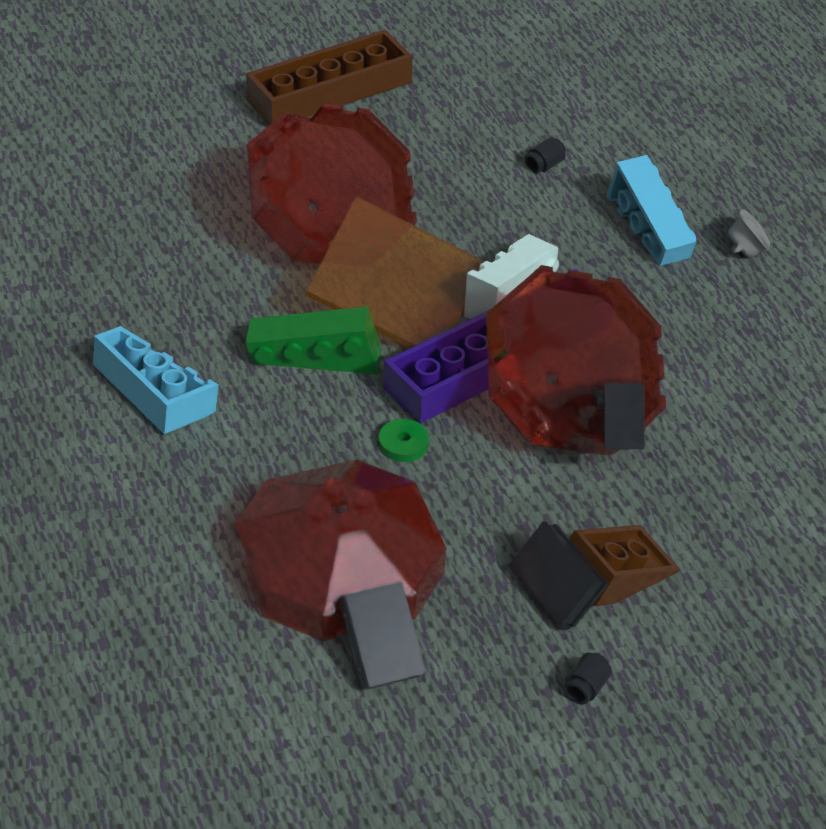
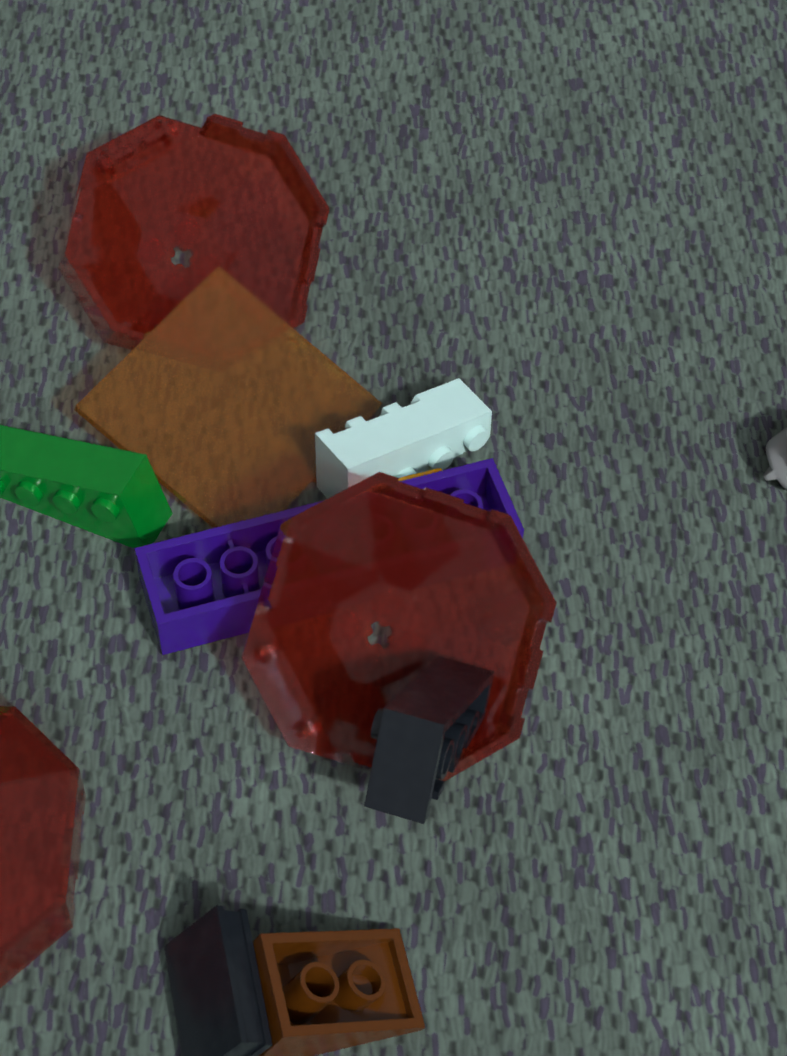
camera: 20 degrees right, 10 degrees up
(330, 76) = (305, 58): reddish brown brick -> none
(403, 451) = (129, 696): green piece -> none
(545, 155) = (557, 247): black brick -> none
(651, 210) = (666, 380): medium azure wedge -> none

